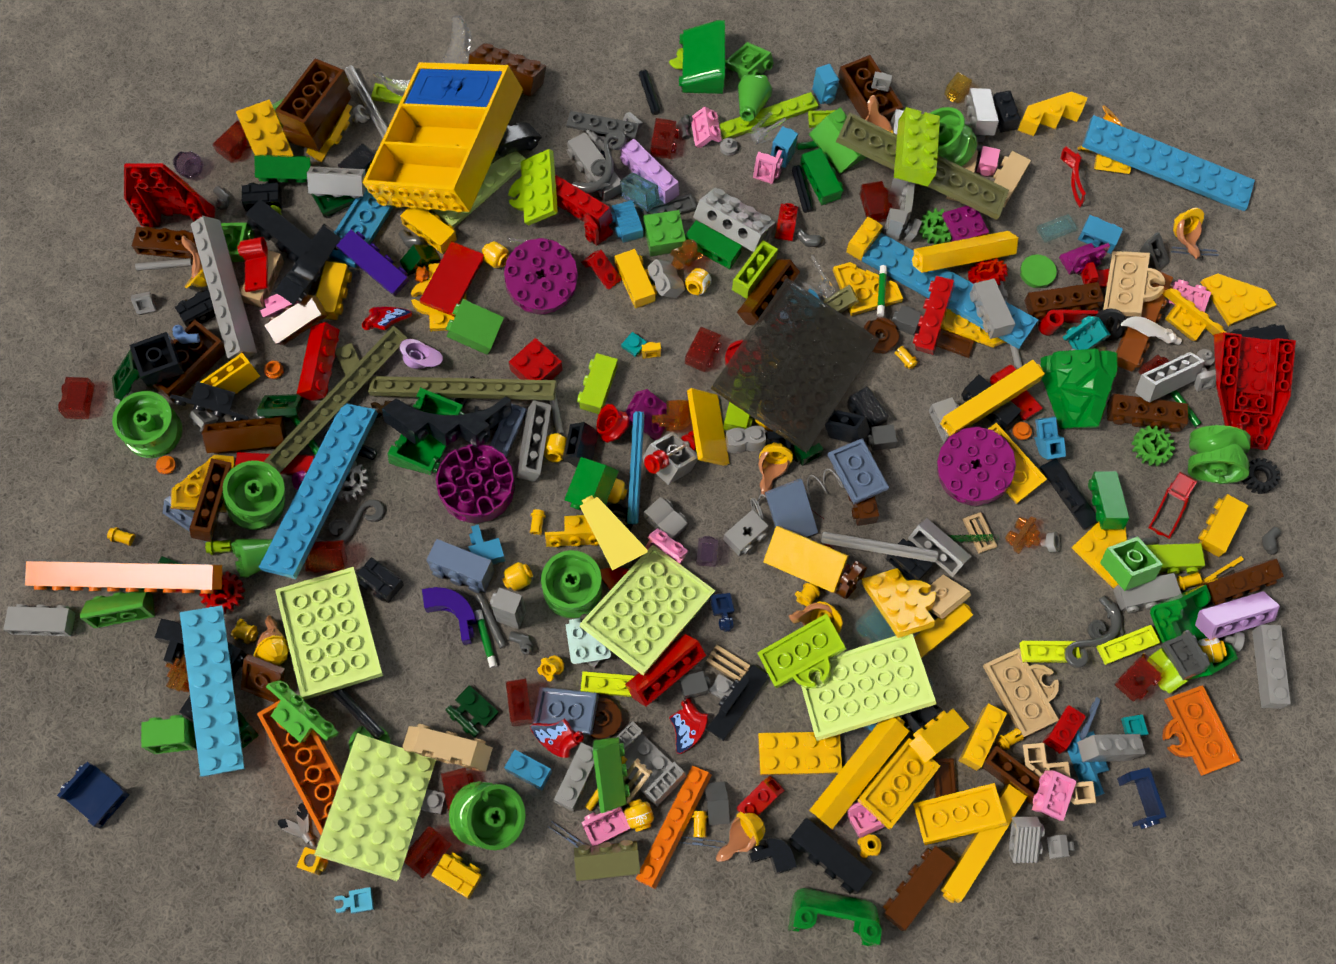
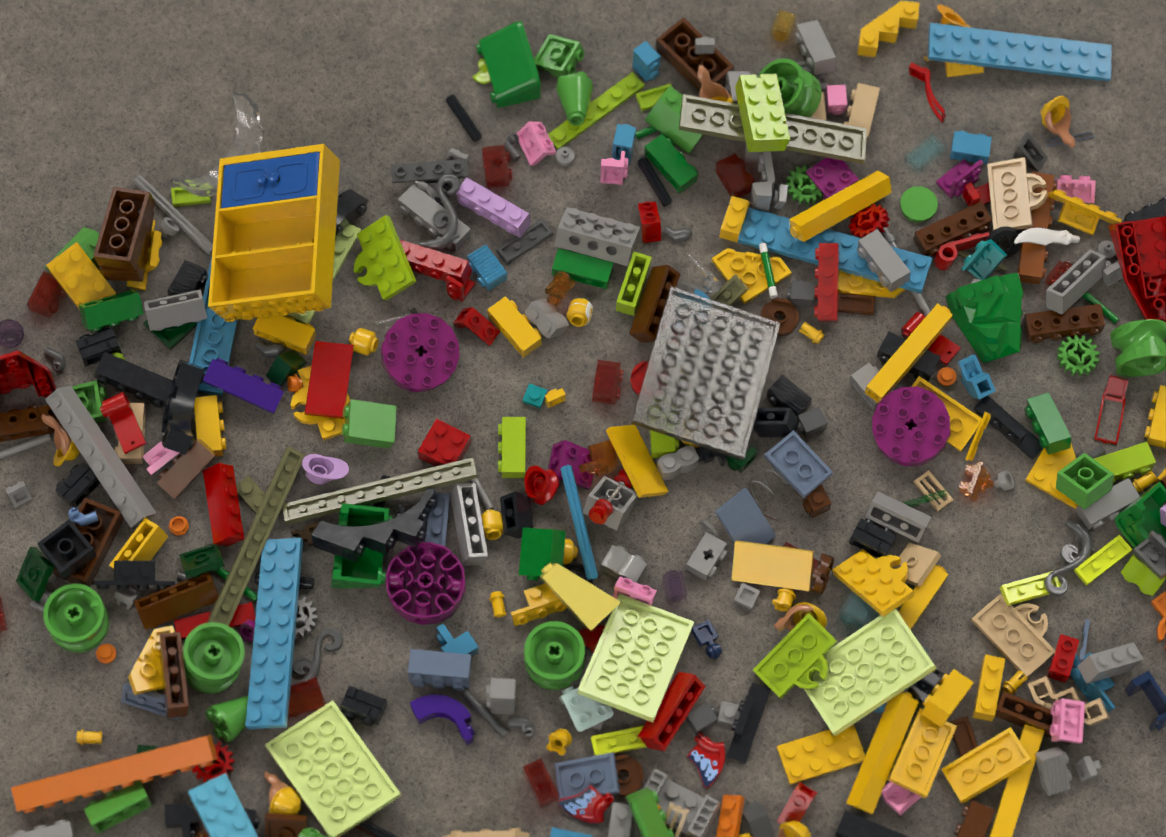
camera: 15 degrees left, 0 degrees up
(218, 546) = (191, 719): lime pin -> none
(244, 632) = (250, 793): yellow brick -> none
(384, 317) = (273, 439): red arm -> none
(476, 706) = (498, 799): dark green plate -> none
(485, 638) = (486, 733): green bar -> none
(517, 576) = (497, 663): yellow head -> none
(528, 72) = (302, 131): reddish brown brick -> none
(640, 190) = (491, 232): clear light blue brick -> none
(663, 232) = (529, 270): bright green brick -> none
(713, 654) = (727, 688): tan tile -> none
(759, 134) = (595, 135): clear plant -> none
(772, 581) = (746, 596): none -> light grey plate
(773, 463) = (712, 479): piece -> none
(865, 850) = (908, 824): yellow brick -> none
(879, 546) = (840, 533): light grey axle -> none
(1006, 111) = (840, 39): black brick -> none
(1028, 505) = (973, 448): none -> yellow piece
(1134, 725) = (1128, 635): teal plate -> none
(1141, 667) = (1122, 577): clear red brick -> none
(1236, 298) = (1123, 178): yellow plate -> none

